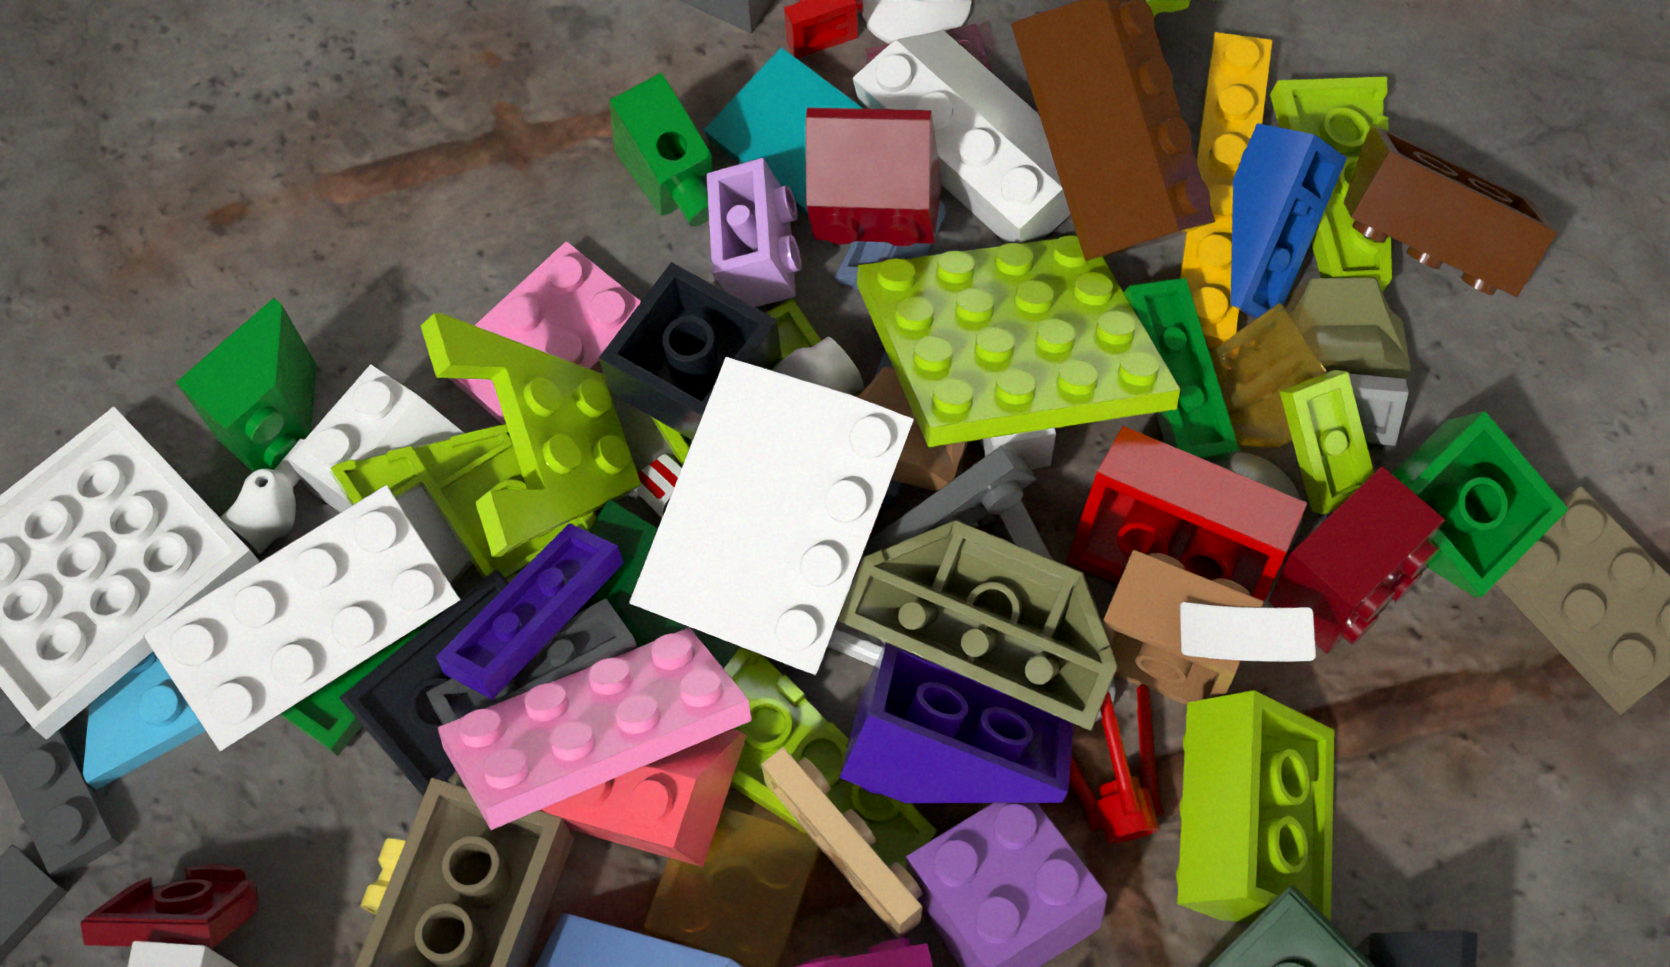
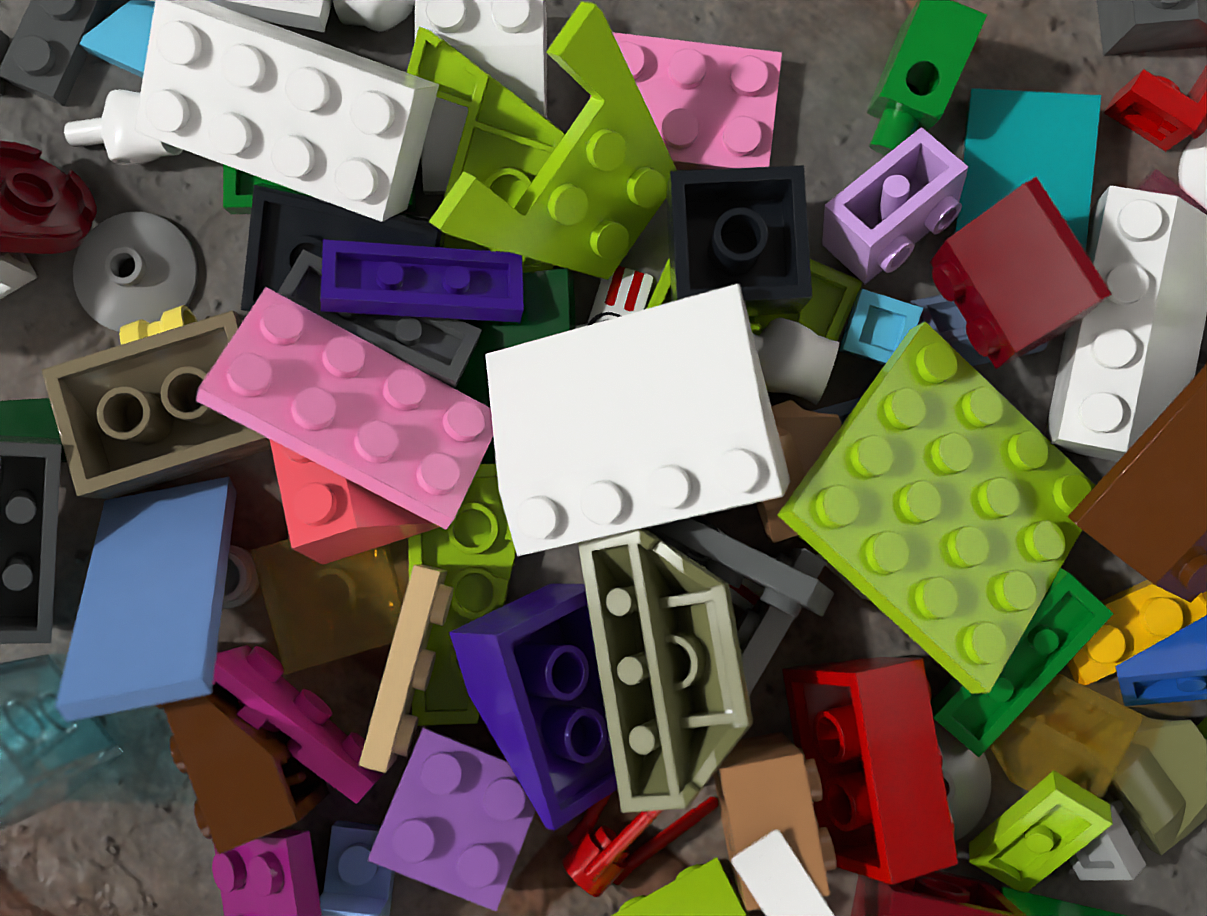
camera: 50 degrees right, 20 degrees up
(195, 786) = (117, 132): none -> white piece
(330, 906) = (162, 276): none -> light grey dish
(836, 307) = (877, 326): none -> medium azure plate

